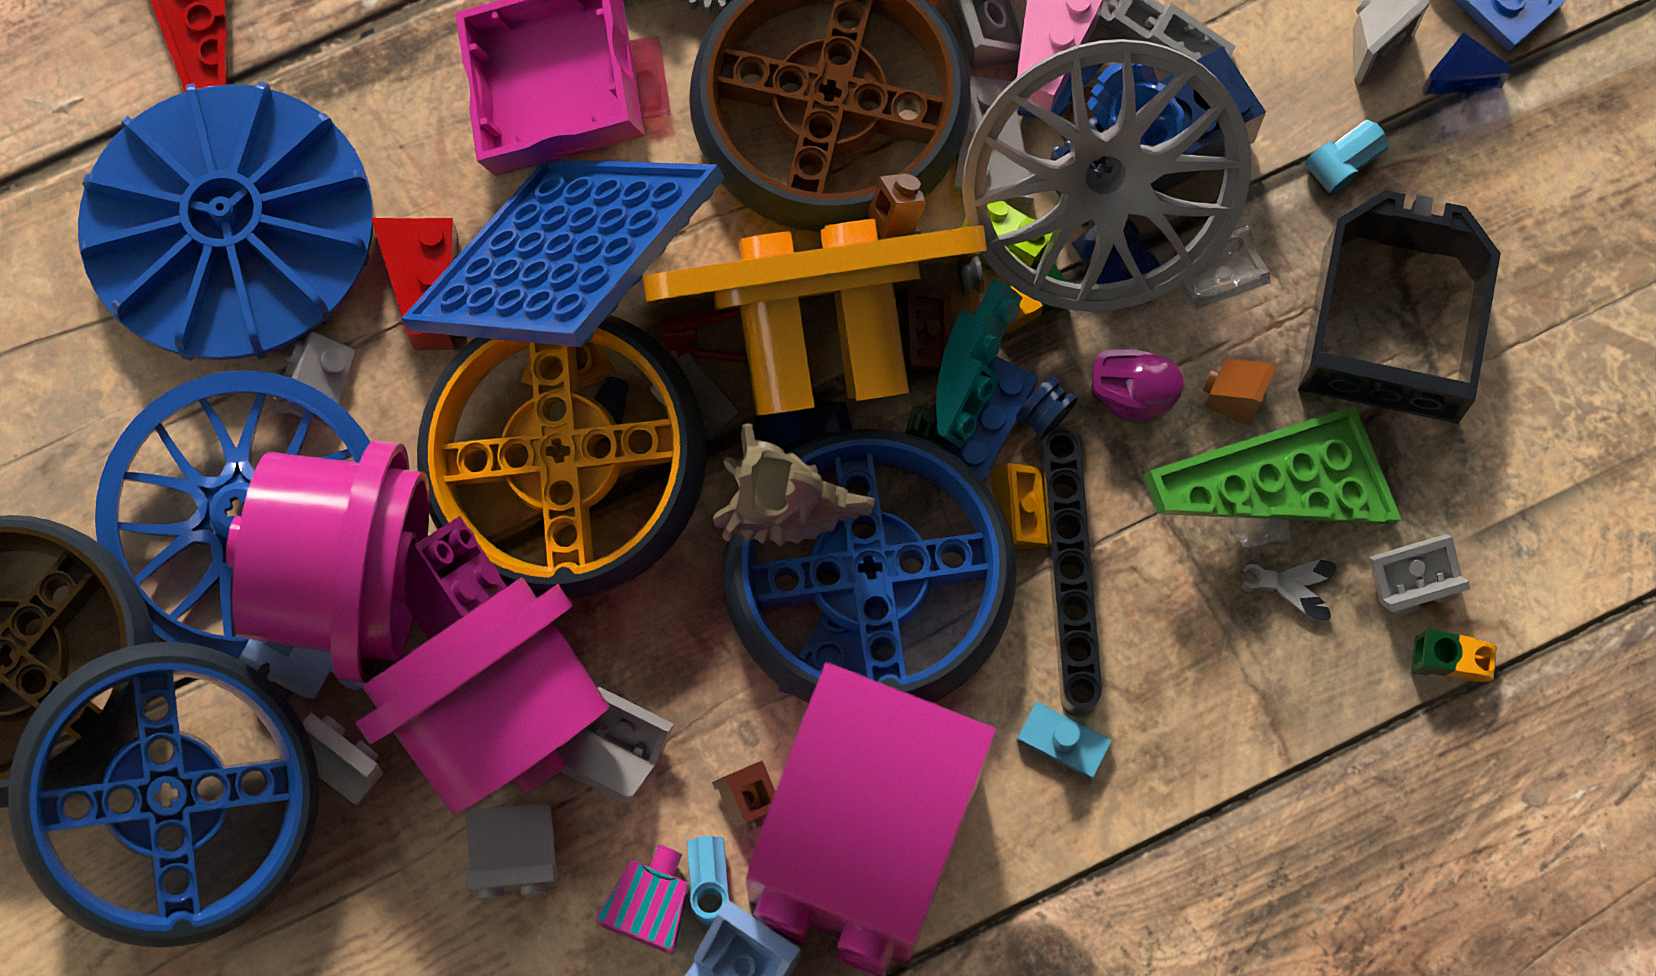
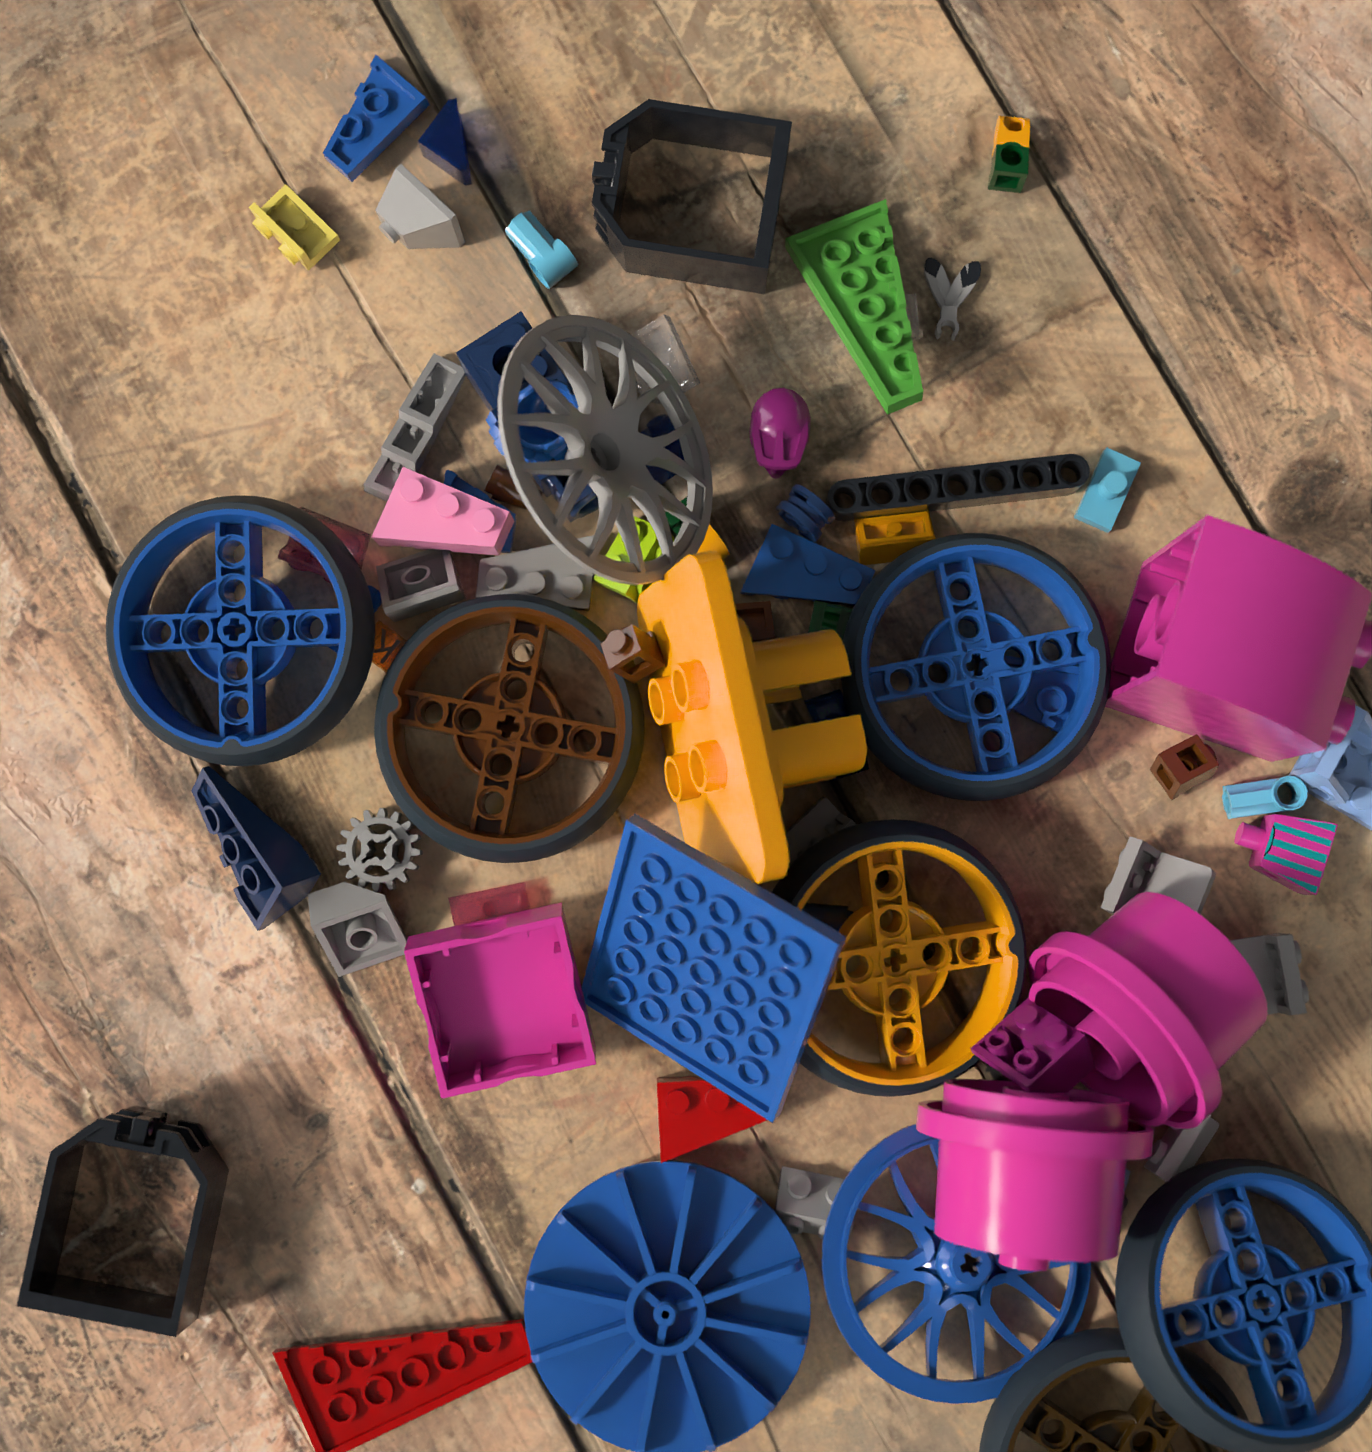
camera: 90 degrees left, 10 degrees up
(782, 497) = (941, 742): dark tan piece -> none
(964, 373) = (786, 587): teal slope -> none
(1238, 388) = (778, 338): dark orange slope -> none
(1418, 575) = (939, 182): light grey bracket -> none

